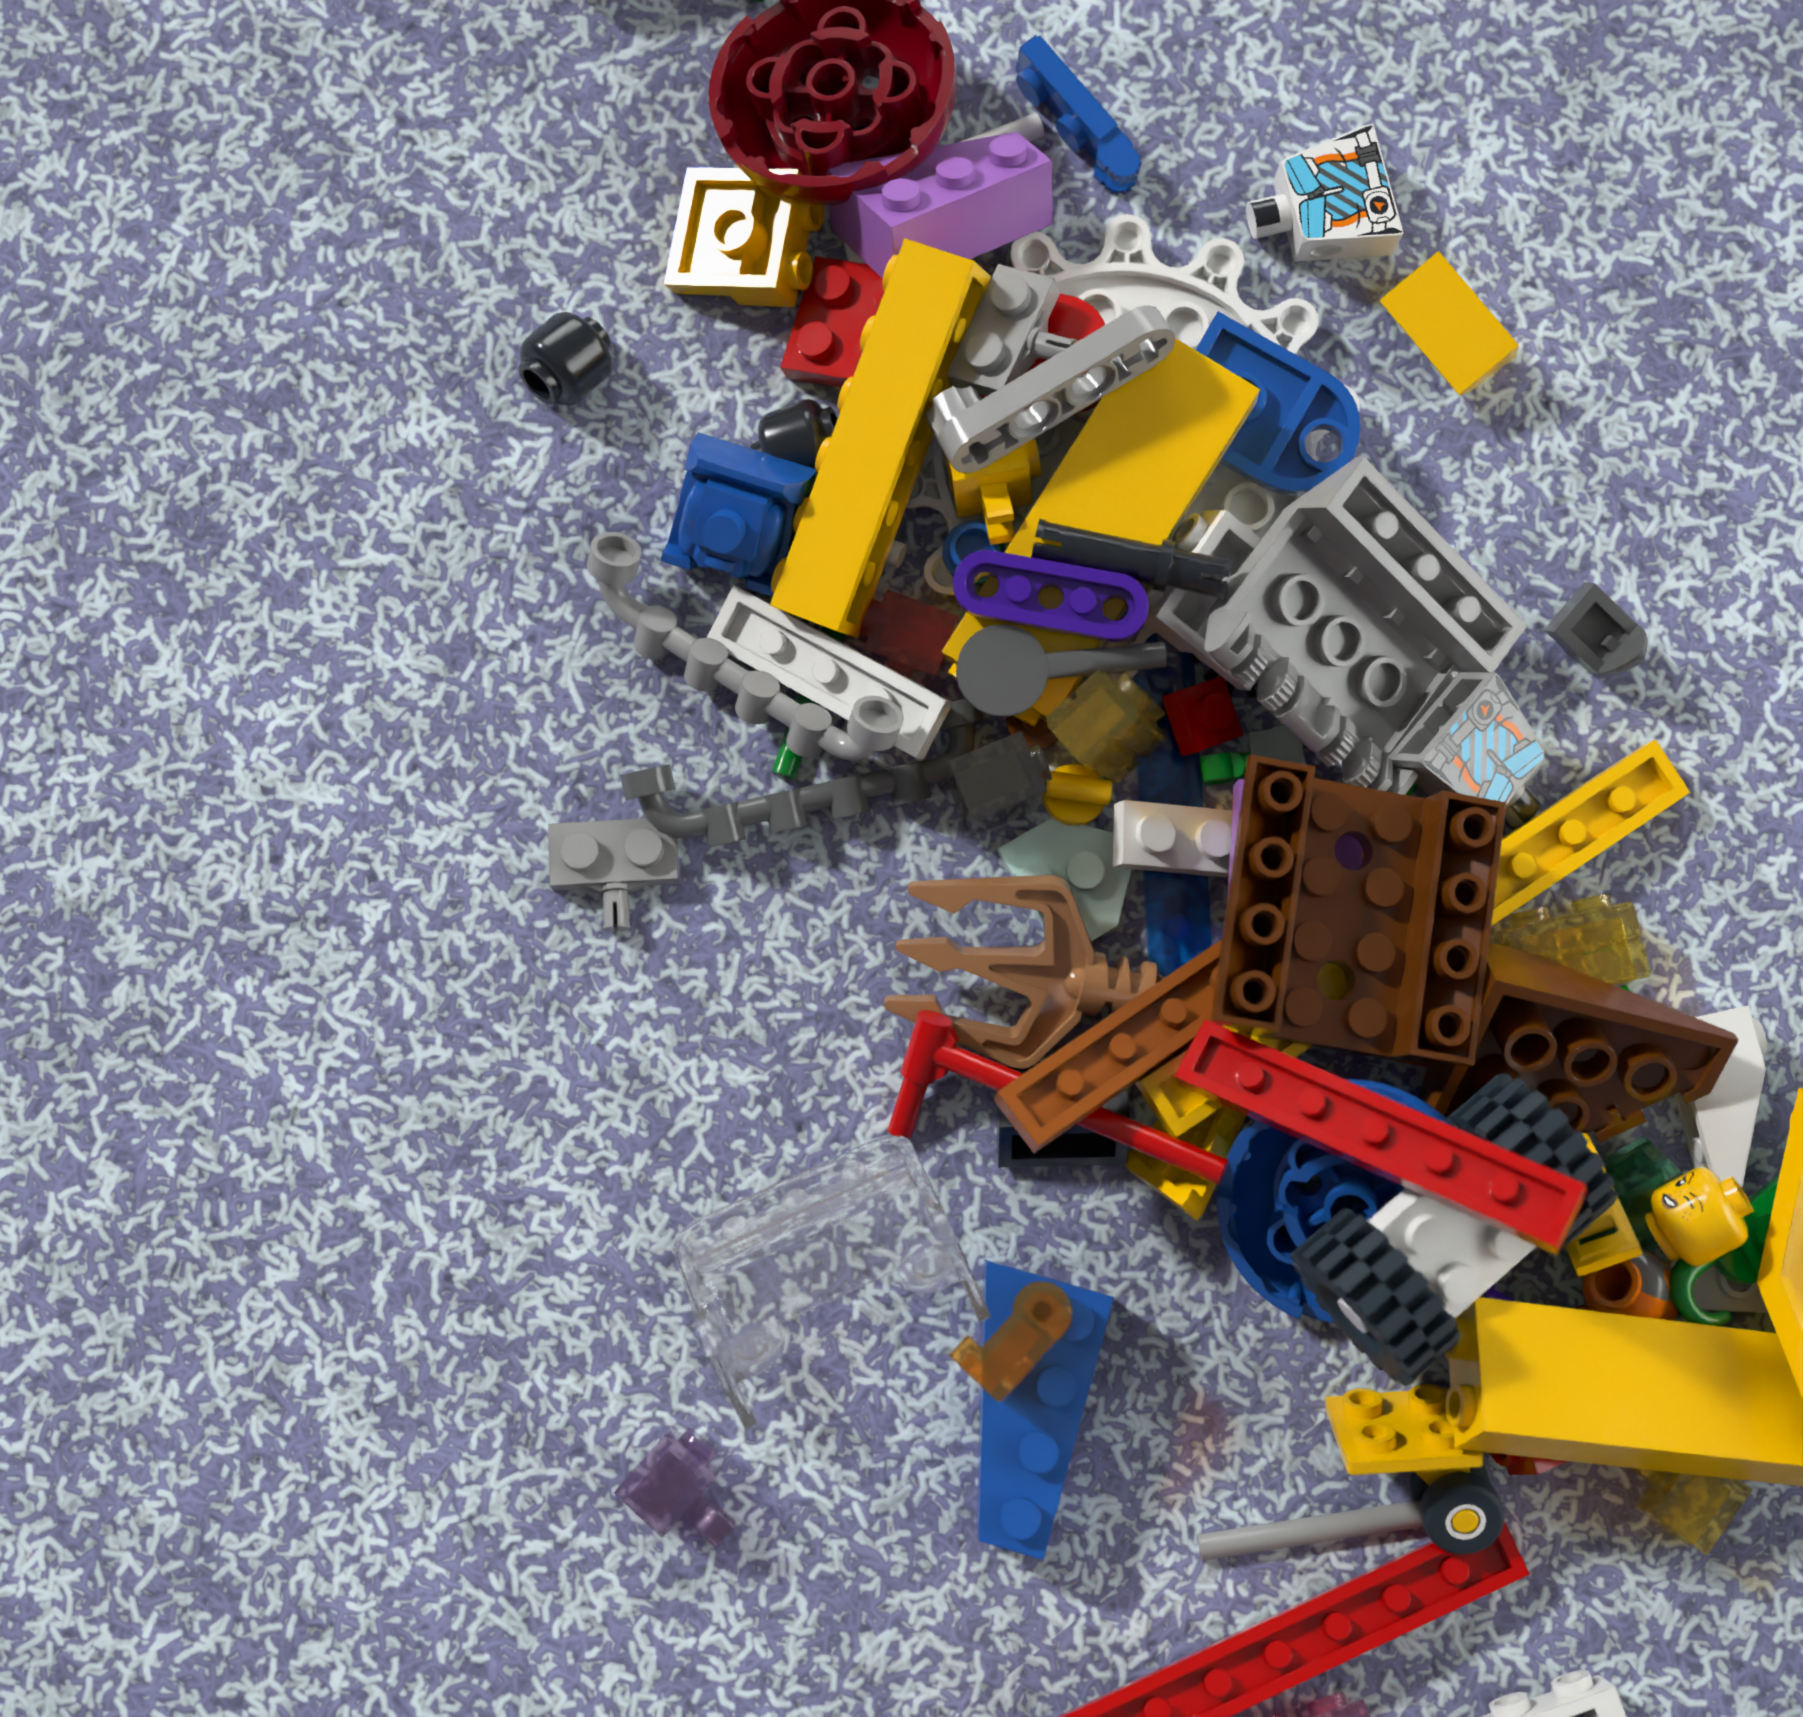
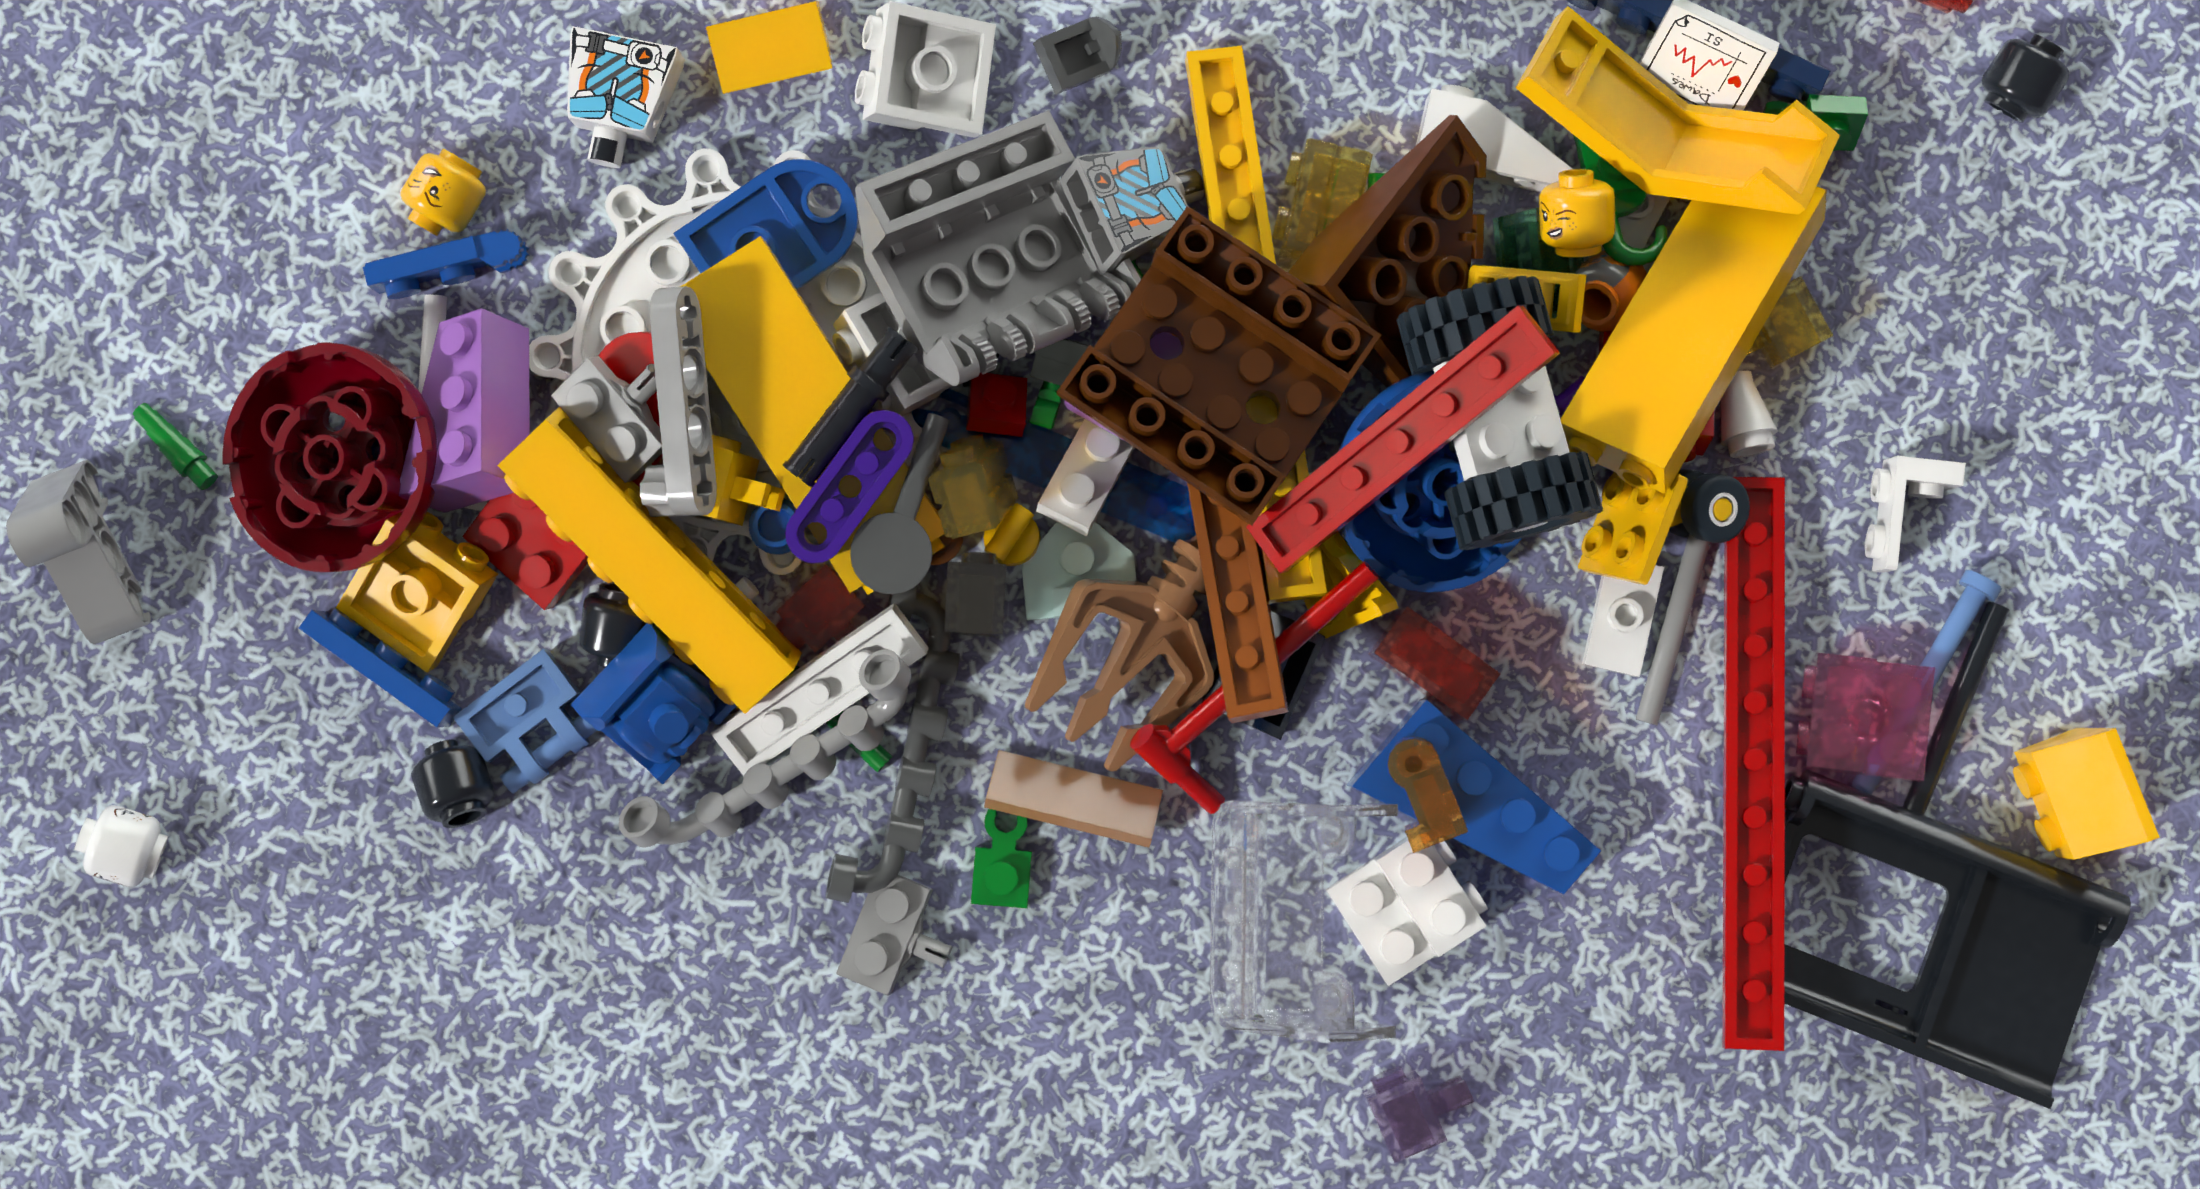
camera: 60 degrees left, 5 degrees up
(358, 73) = (121, 846): none -> white head
(650, 238) = (382, 665): none -> blue plate
(669, 386) = (516, 708): none -> medium blue plate
(730, 945) = (1002, 872): none -> green plate
(837, 981) = (1073, 798): none -> medium nougat tile
(887, 1383) = (1408, 907): none -> white plate
(1145, 81) = (443, 192): none -> yellow head
(1154, 1290) = (1434, 663): none -> clear red brick
(1291, 1472) = (1622, 624): none -> white plate
(1504, 487) = (926, 70): none -> white plate
(1569, 1502) = (1745, 419): none -> white cone

